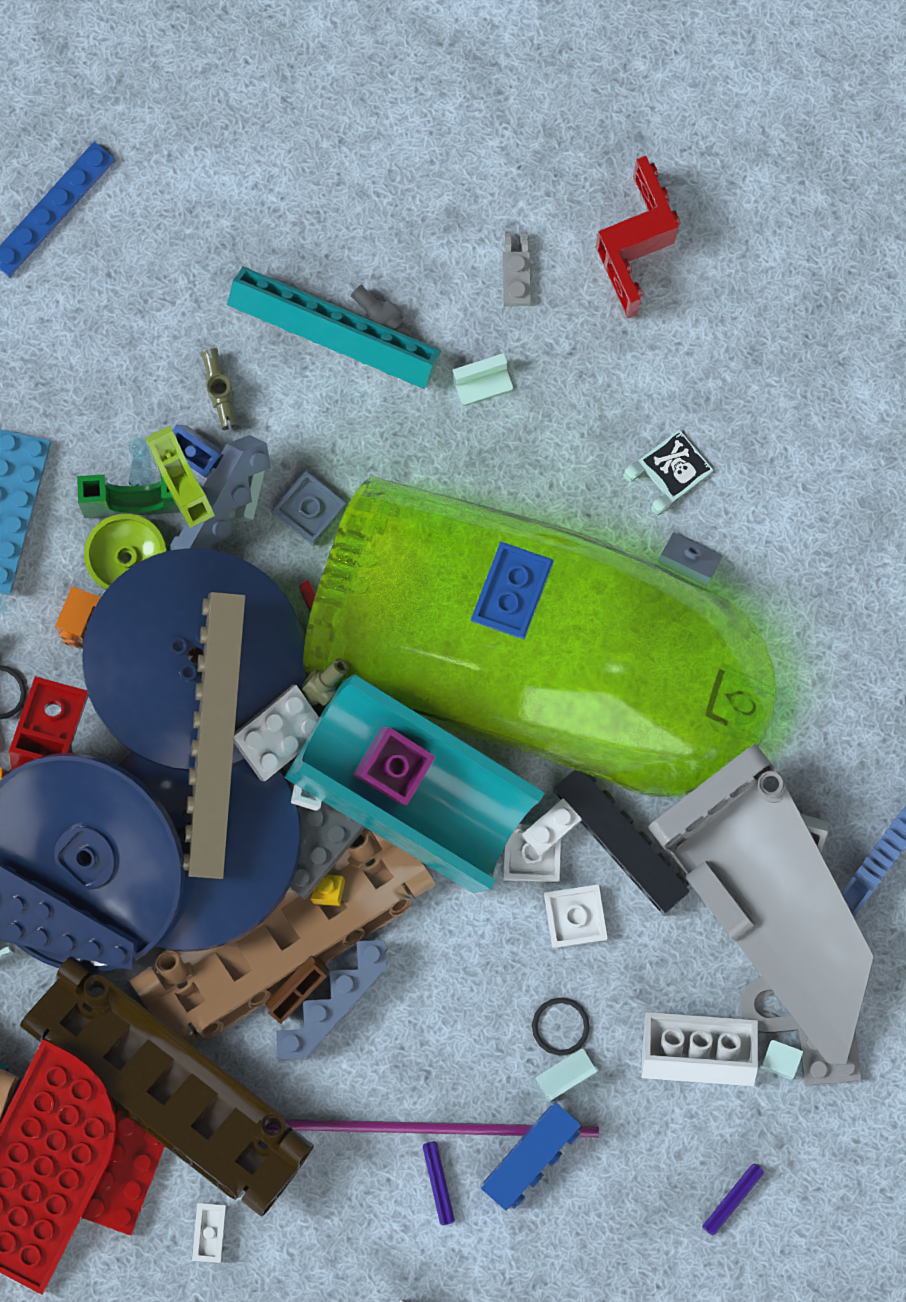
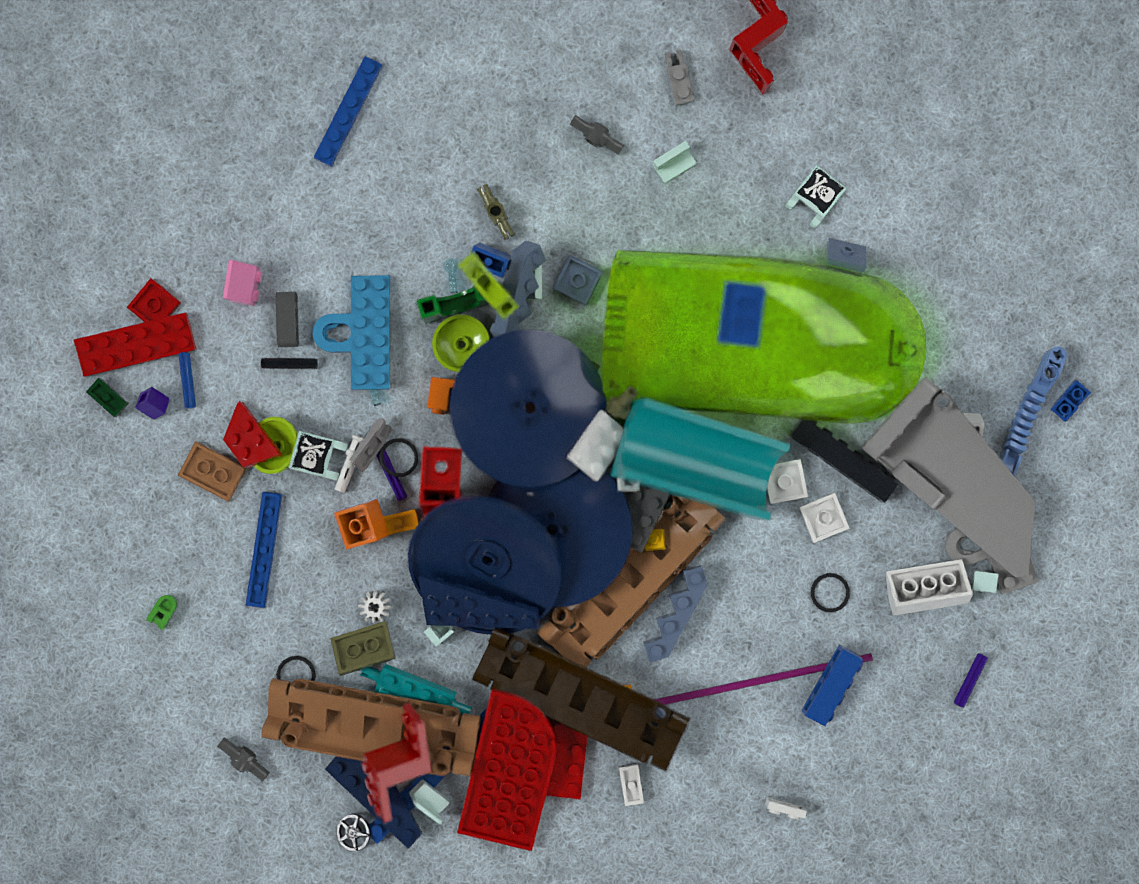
camera: 10 degrees left, 10 degrees up
(215, 735) = (558, 460): dark tan brick -> none
(297, 988) = (651, 612): reddish brown piece -> none
(307, 593) = (592, 341): red tile -> none
(333, 327) = (563, 150): teal brick -> none
(394, 766) = (685, 452): magenta brick -> none
(438, 1183) = (774, 716): dark purple axle -> none
(551, 827) = (794, 462): white plate -> none
(566, 1075) = (842, 625): light aqua panel -> none

